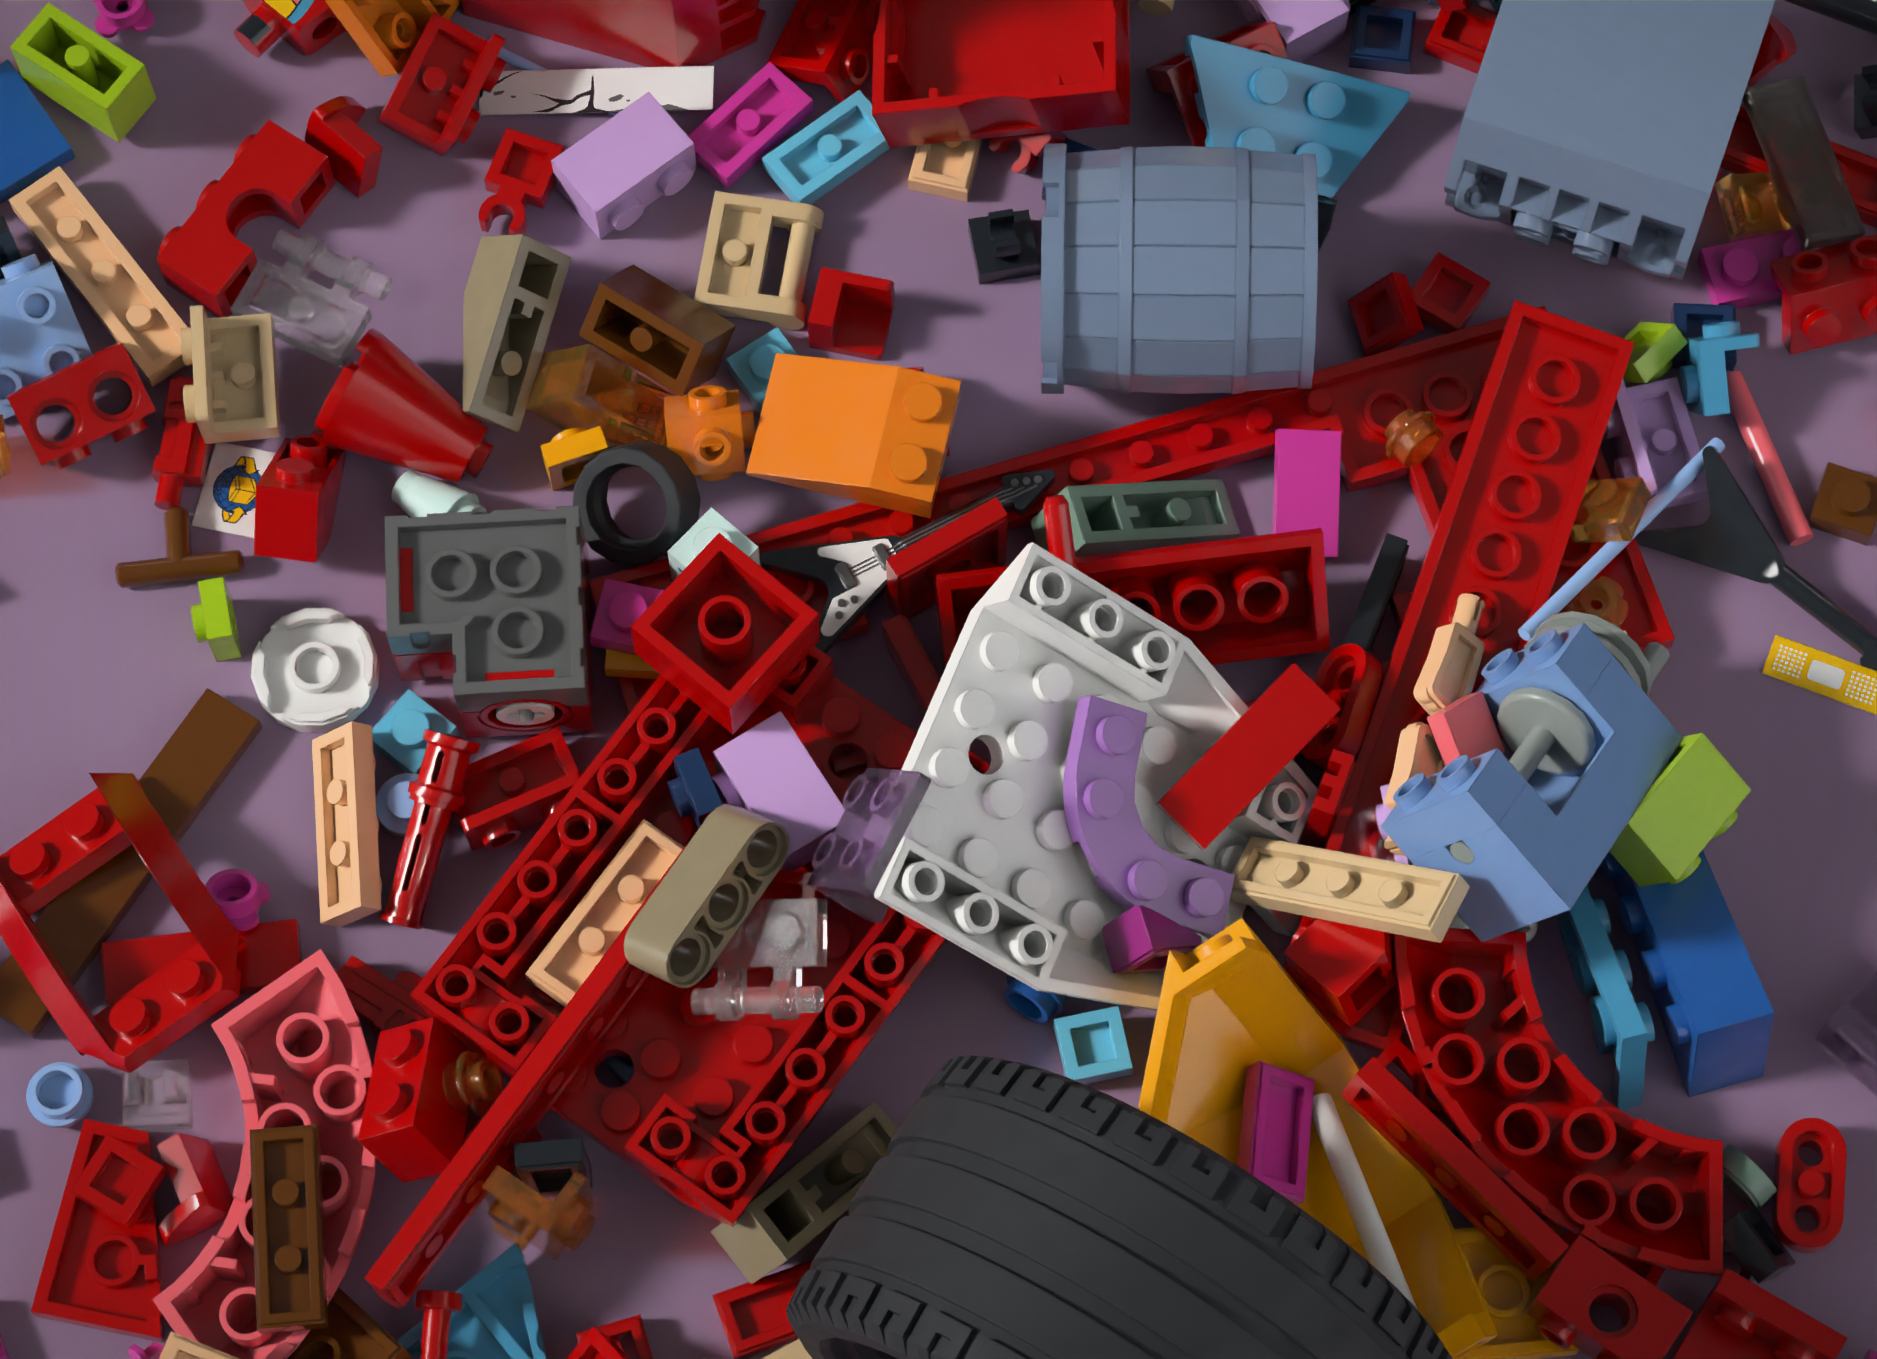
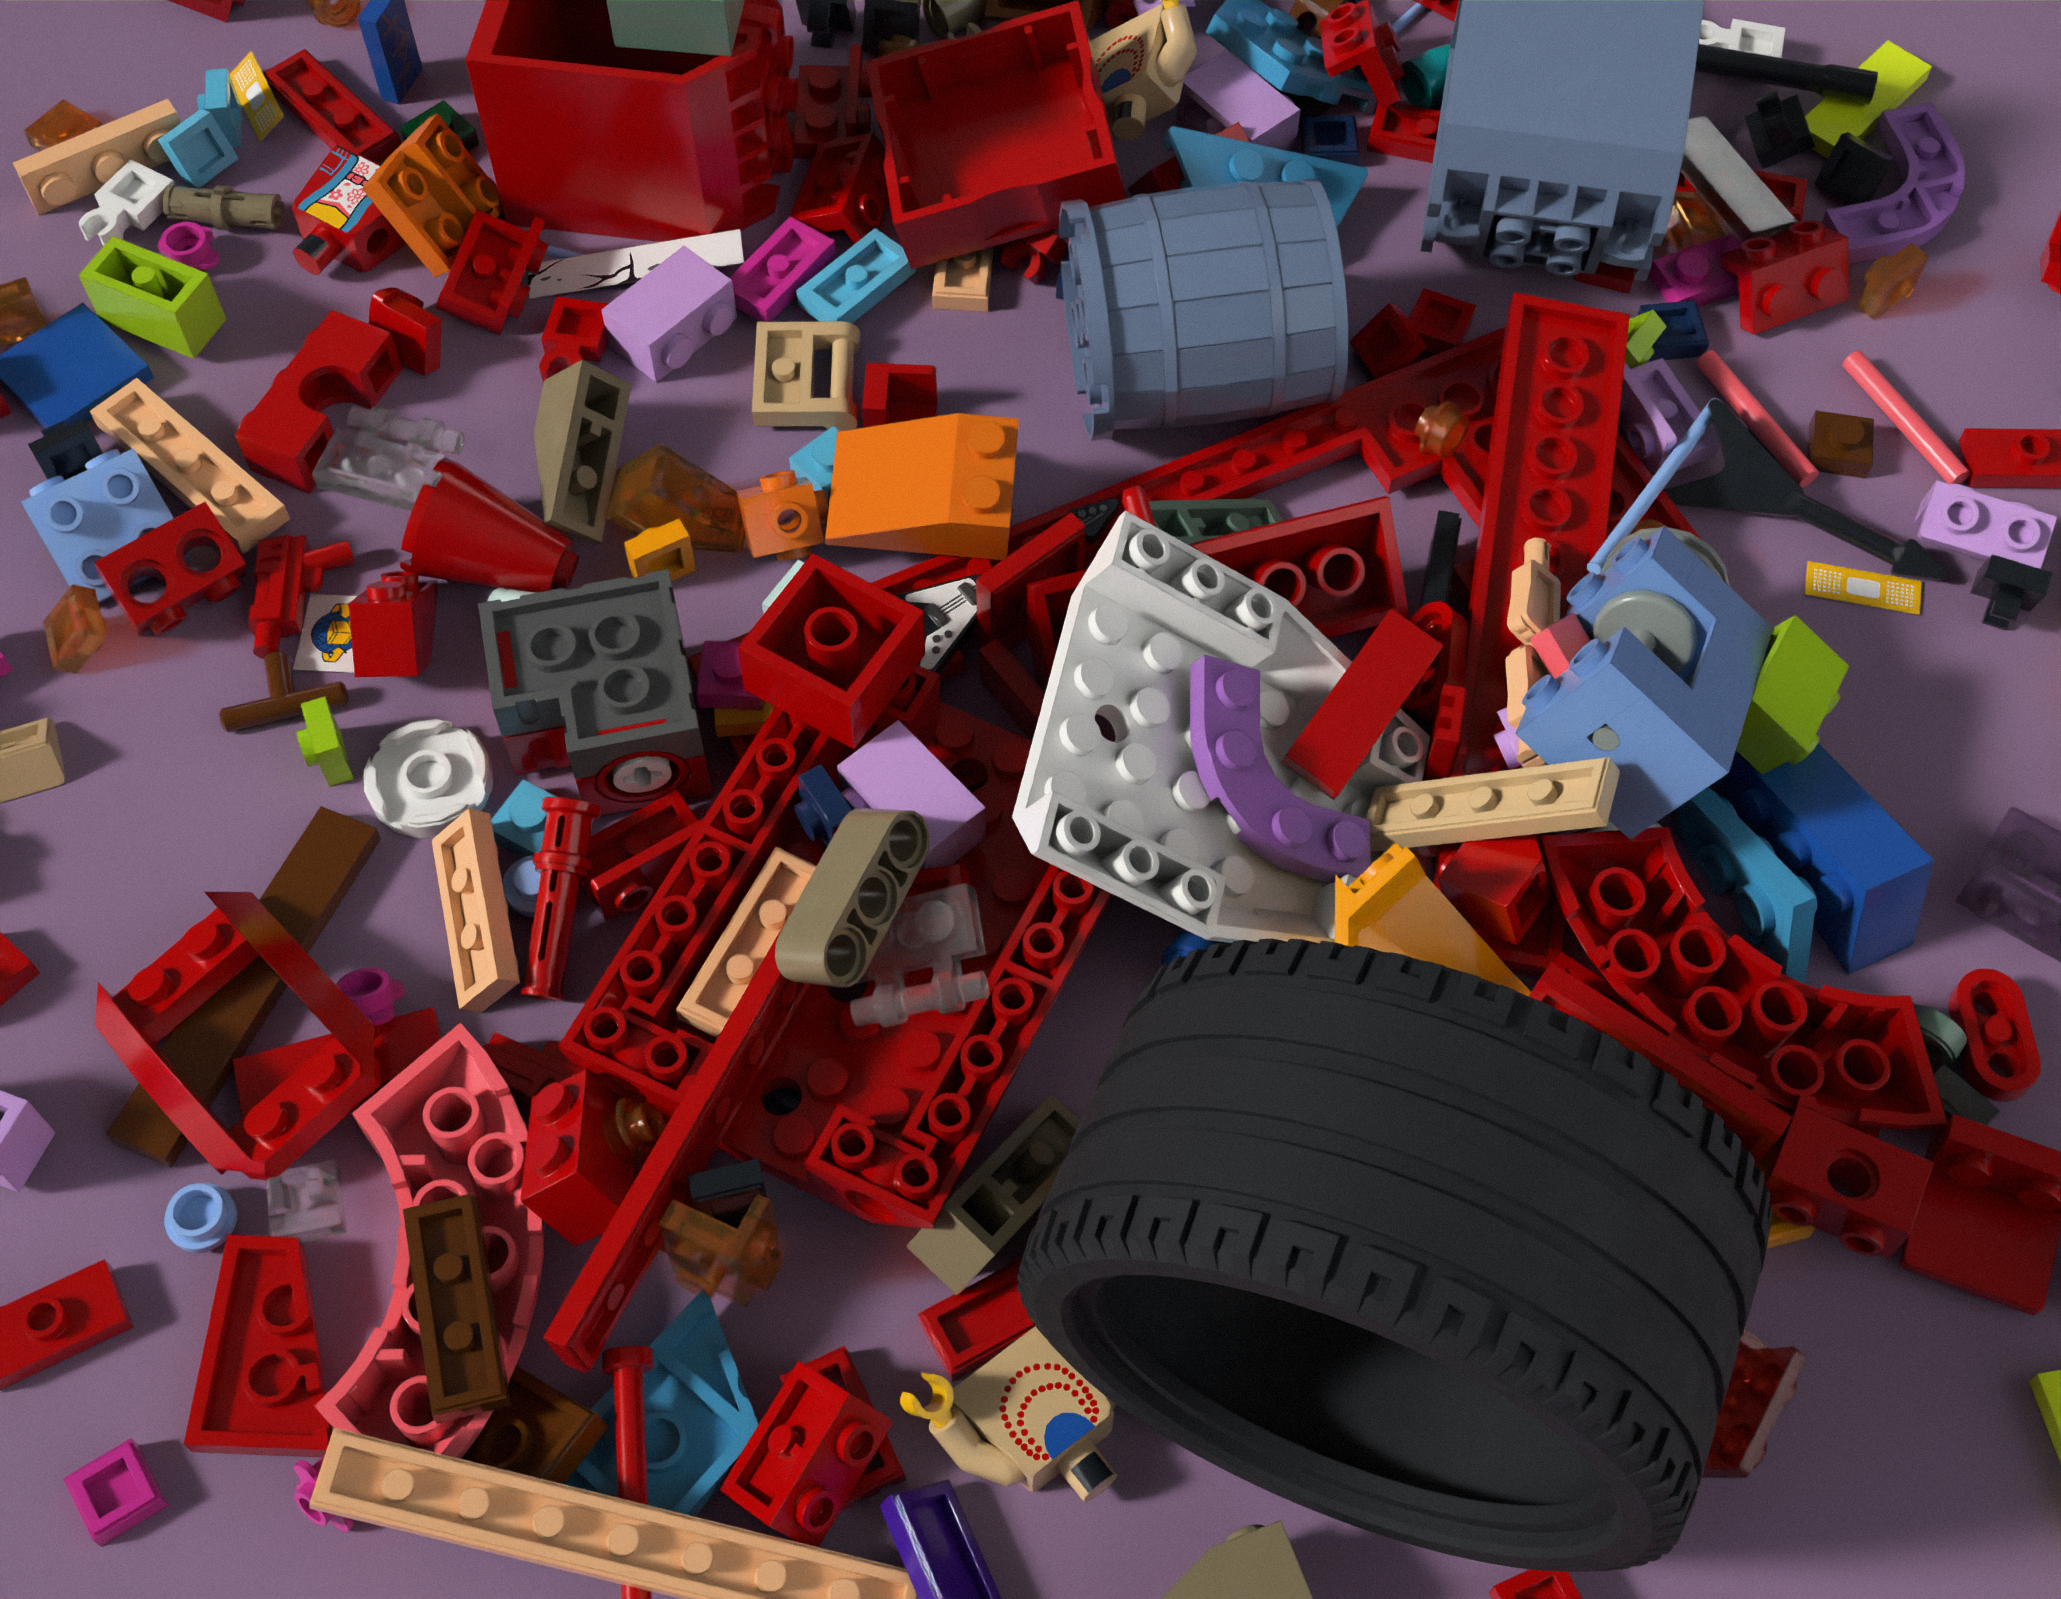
camera: 10 degrees left, 10 degrees down
(119, 1181) = (268, 1288): red plate -> none
(199, 1187) = (357, 1286): red tile -> none
(232, 376) = (317, 524): tan bracket -> none
(657, 330) = (721, 435): reddish brown brick -> none
(678, 489) = (682, 563): black tyre -> none
(860, 848) = (1001, 831): clear purple bracket -> none
(1003, 246) = (1028, 337): black tile -> none
(1142, 941) = (1300, 884): magenta slope -> none
(1307, 483) = (1348, 469): dark pink tile -> none
(1610, 510) = (1641, 460): clear orange plate -> none
(1705, 375) = (1689, 343): dark azure bracket -> none

